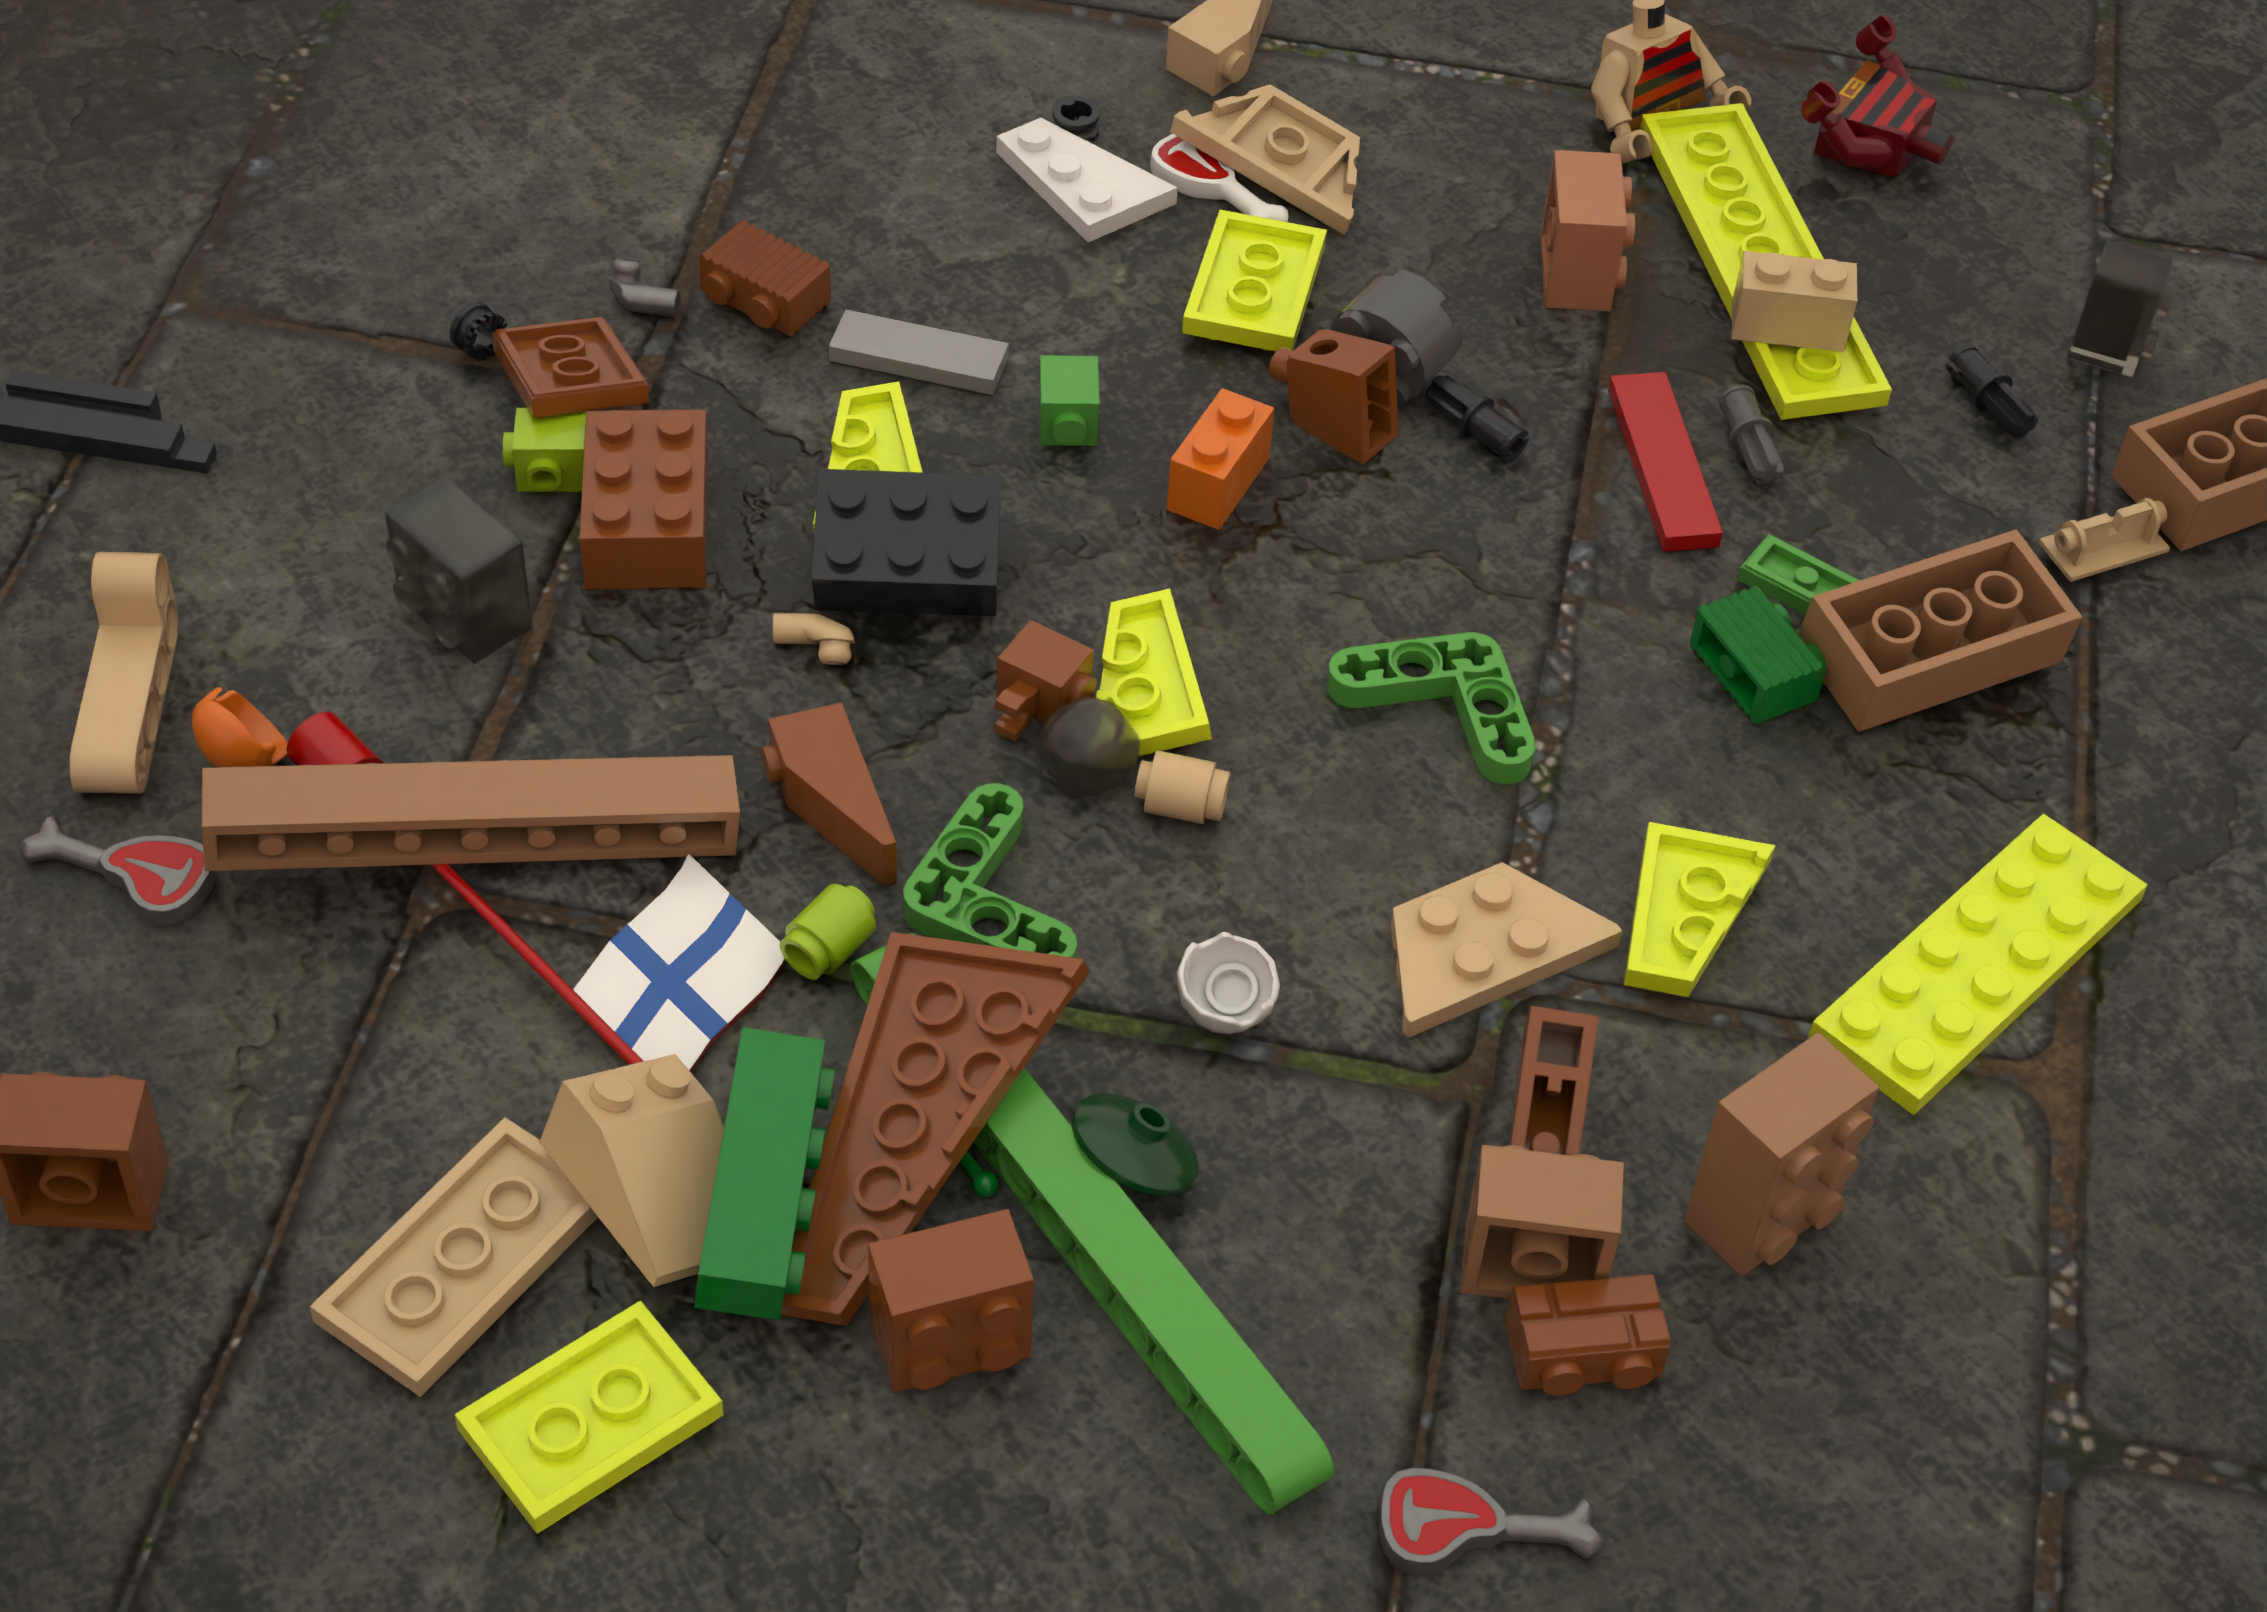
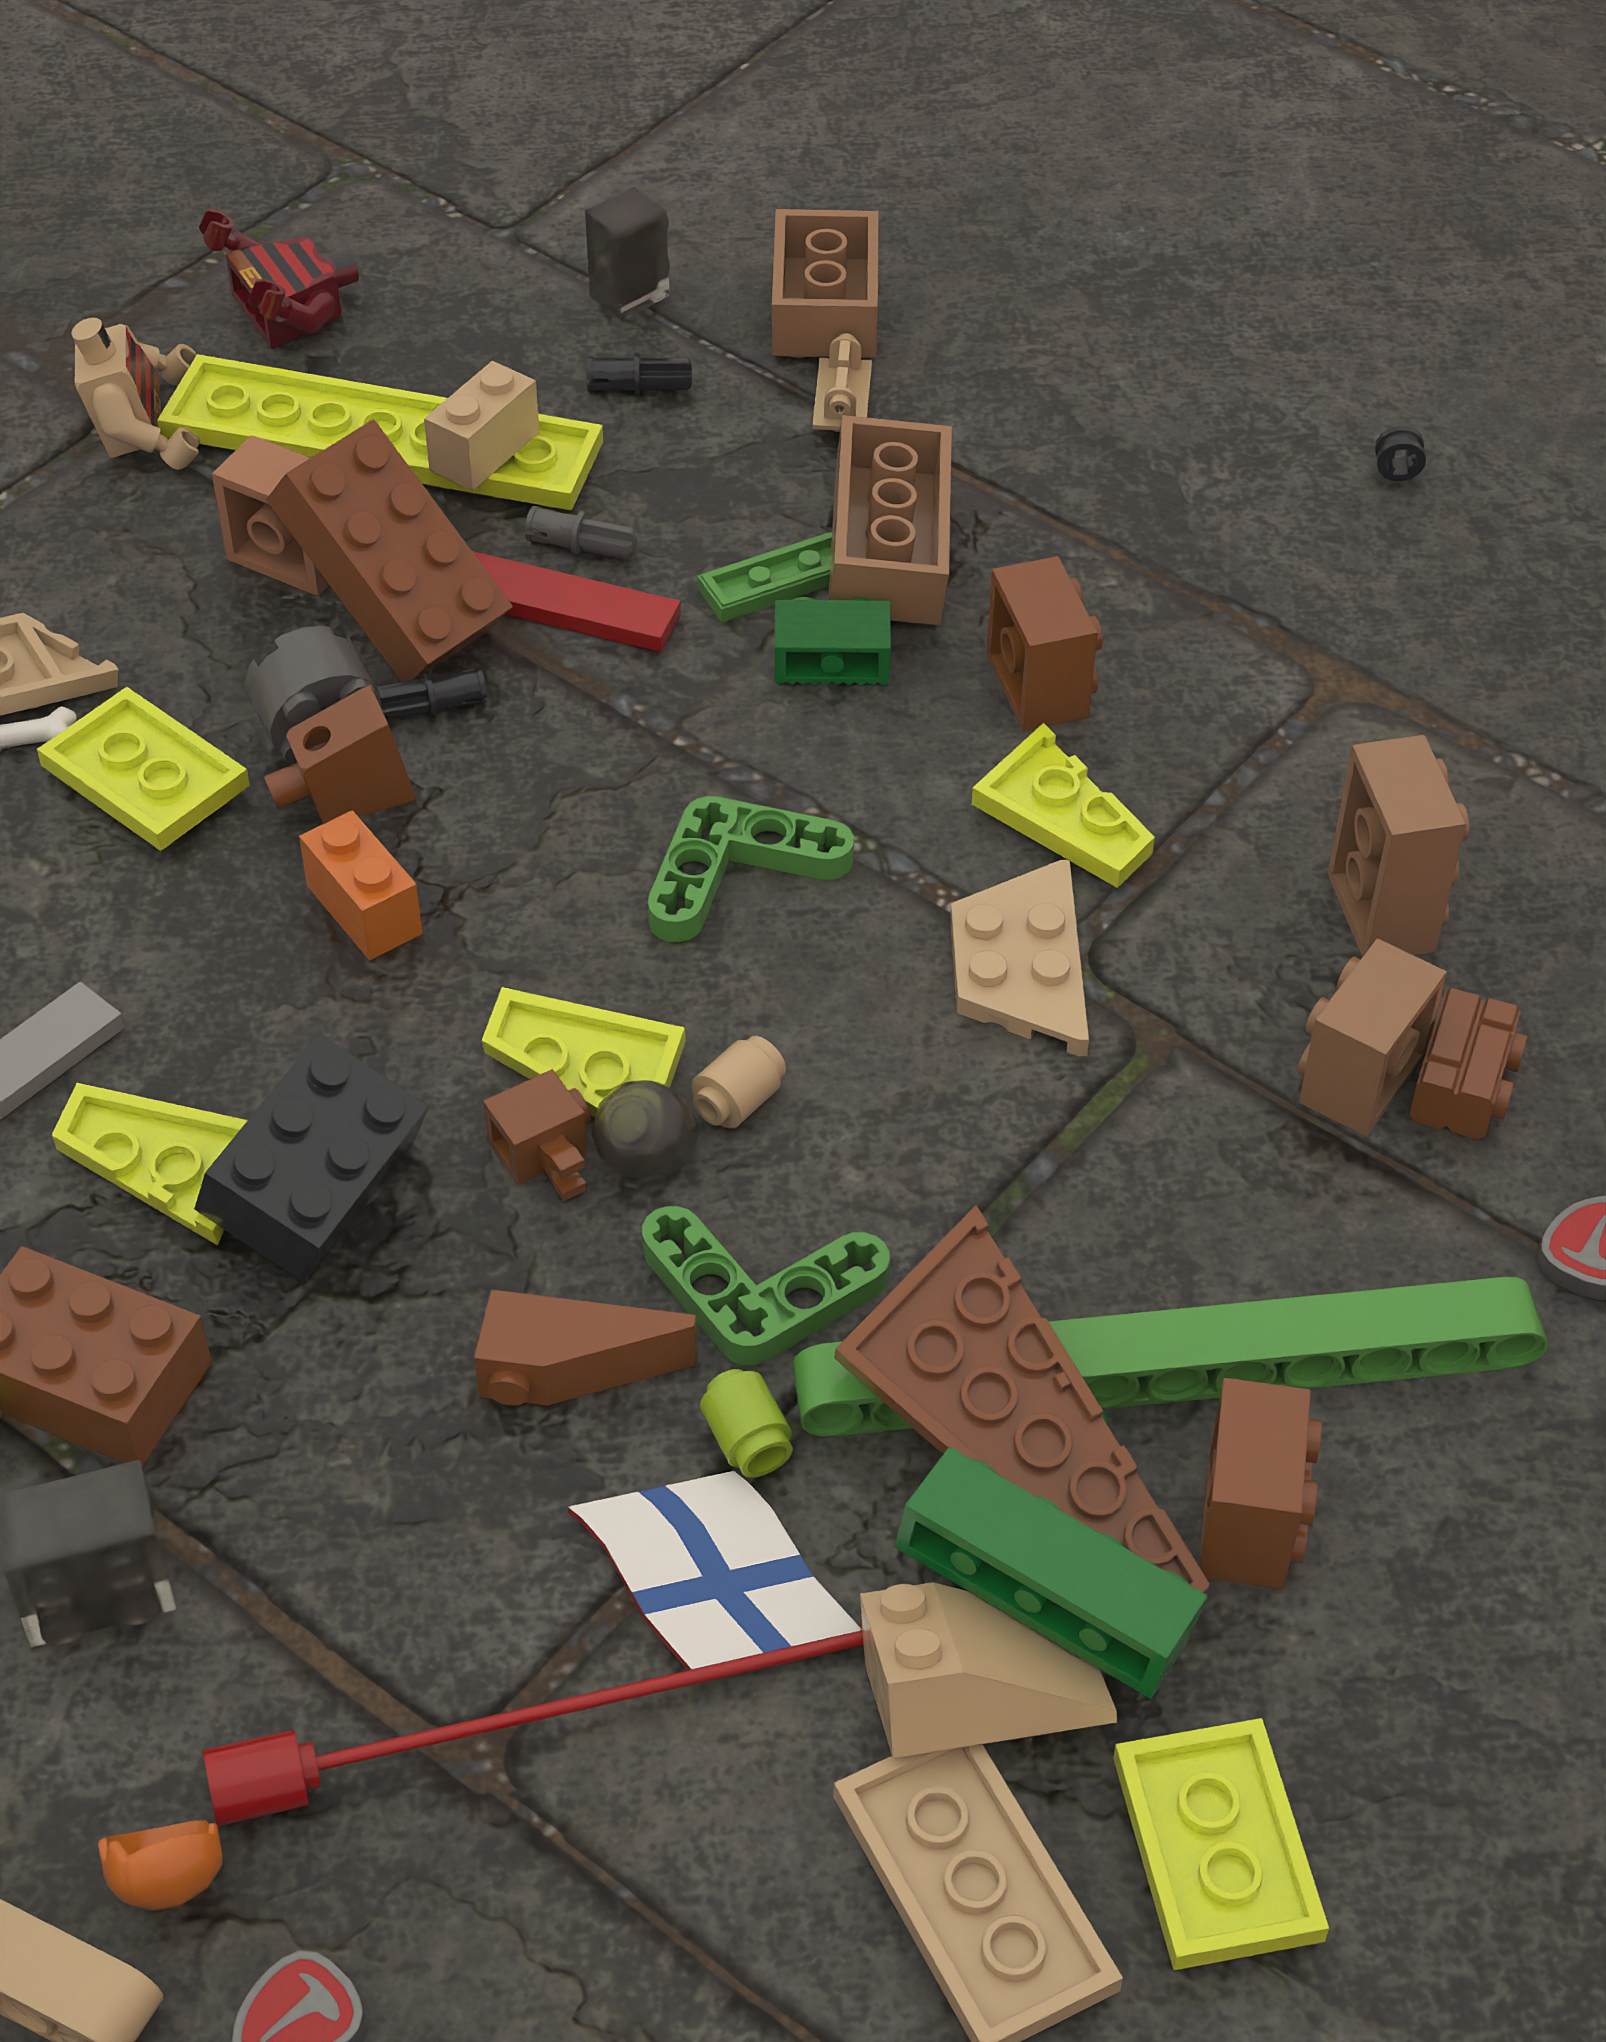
camera: 60 degrees left, 0 degrees up
(468, 812) = (422, 1682): medium nougat brick -> none
(816, 629) = (347, 1286): tan arm -> none
(1068, 400) = (197, 965): bright green brick -> none
(1135, 1144) = (1125, 1283): dark green dish -> none
(1227, 983) = (987, 1143): white hair -> none
(1553, 1080) = (1227, 982): dark orange slope -> none
(1568, 299) = (388, 551): none -> dark orange brick
(1861, 797) = (1042, 642): none -> dark orange brick
(1978, 962) = (1214, 669): neon yellow plate -> none

